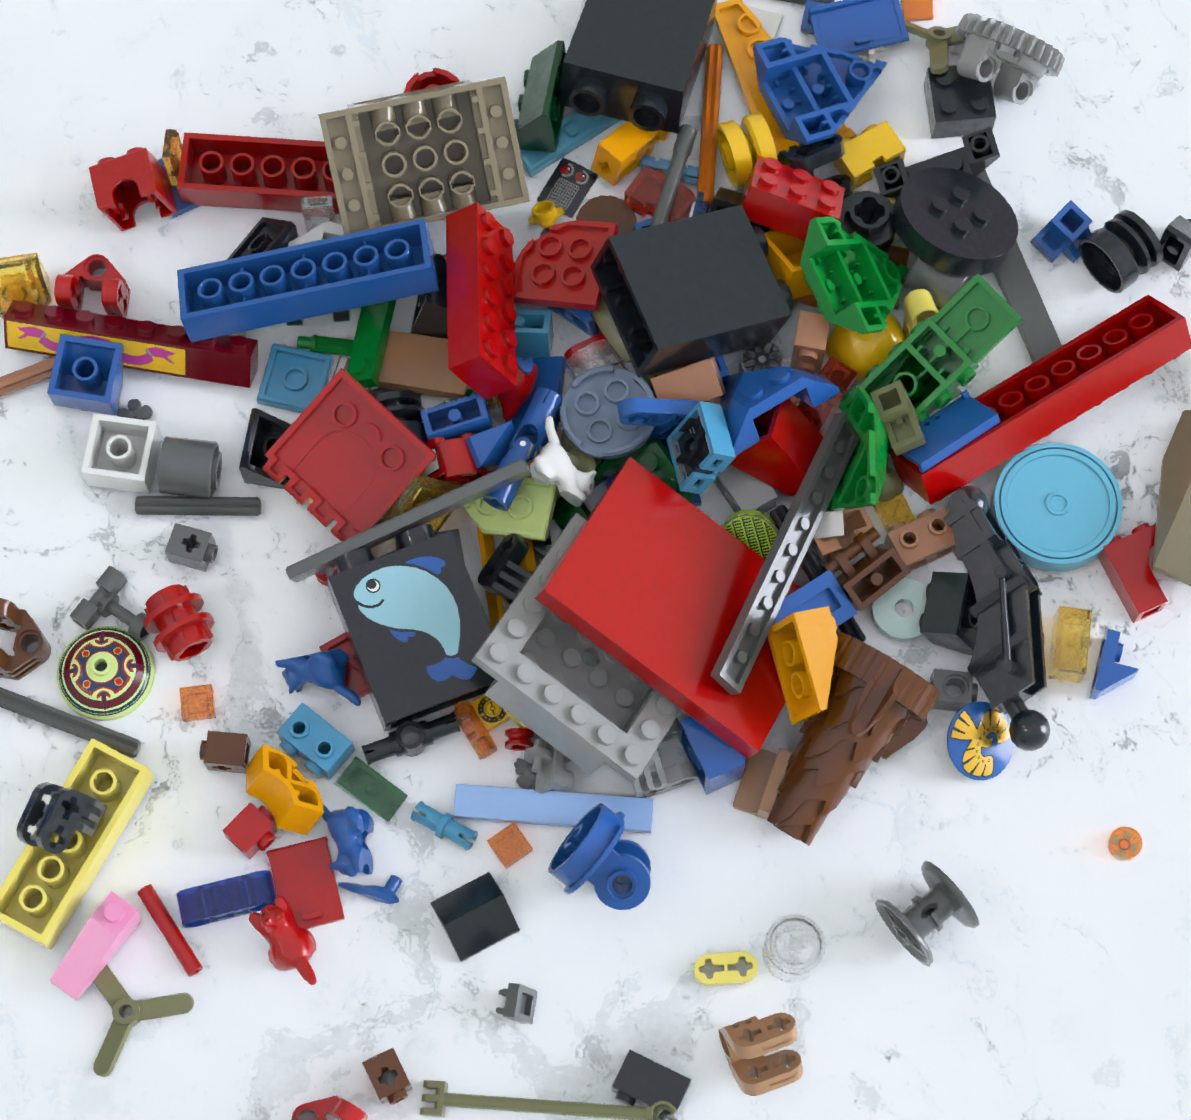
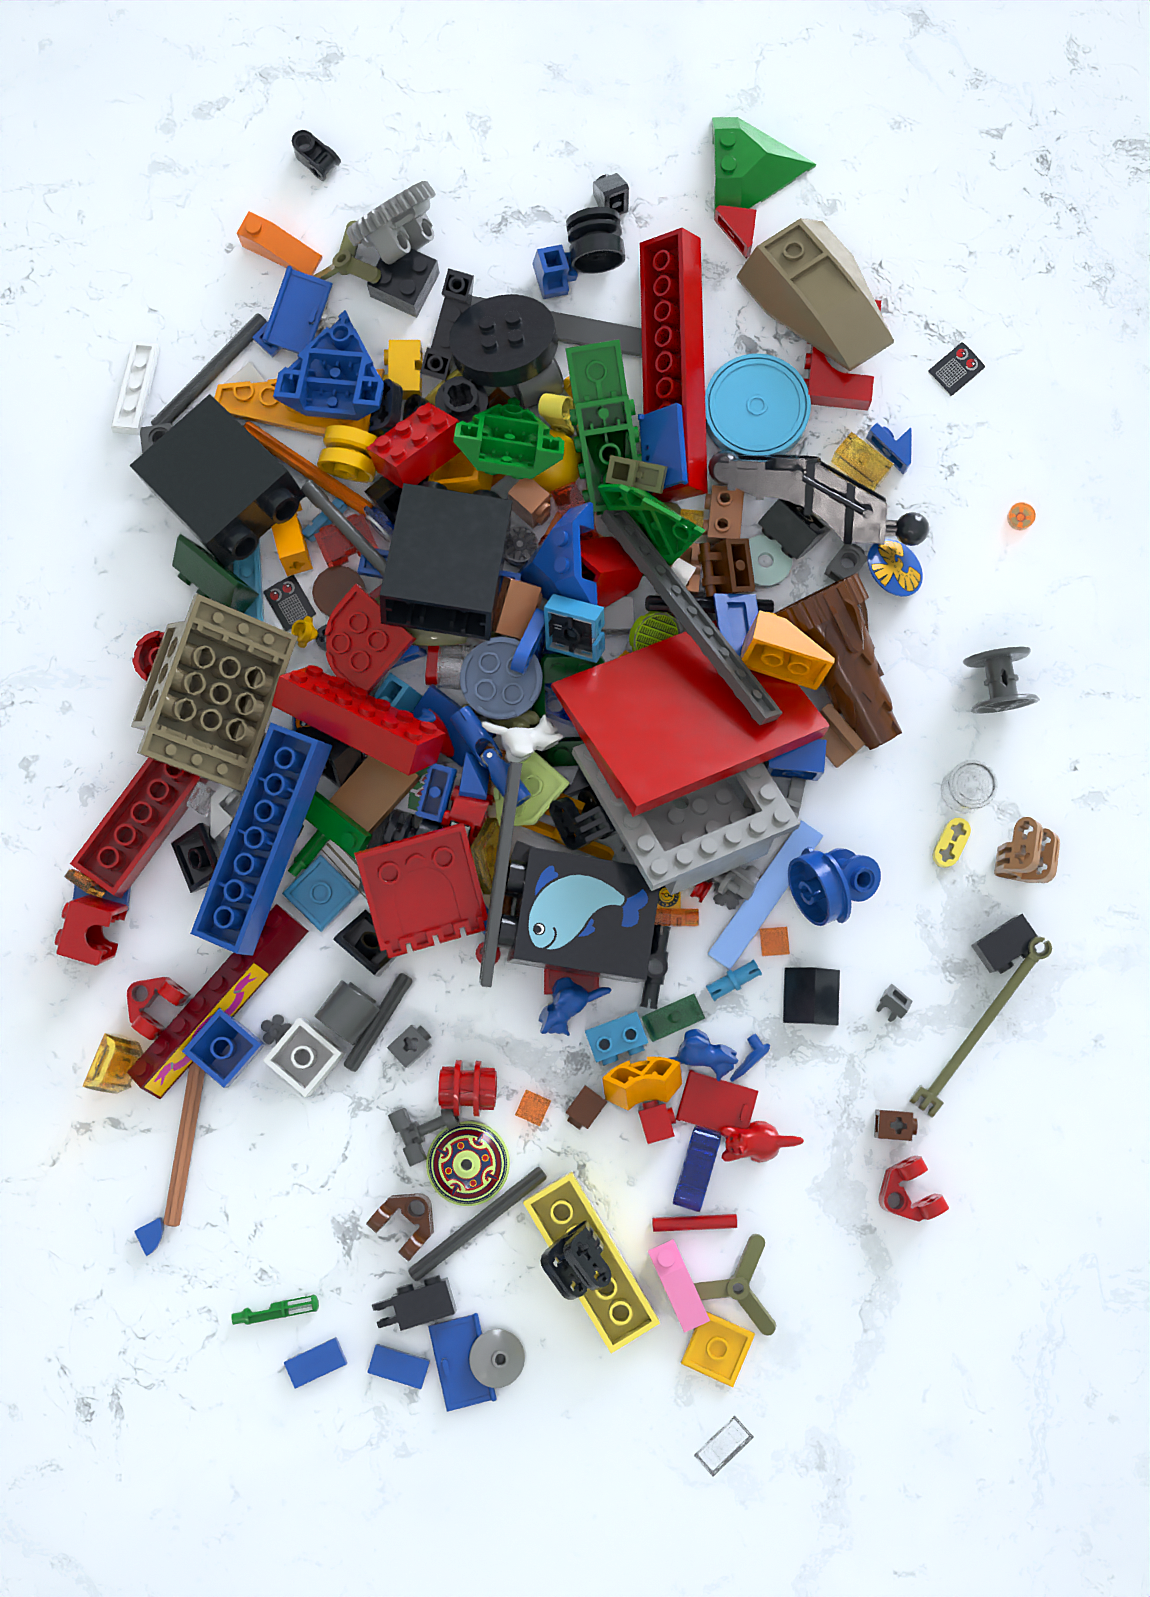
camera: 55 degrees left, 10 degrees up
(52, 1029) = (718, 1349): none -> yellow tile

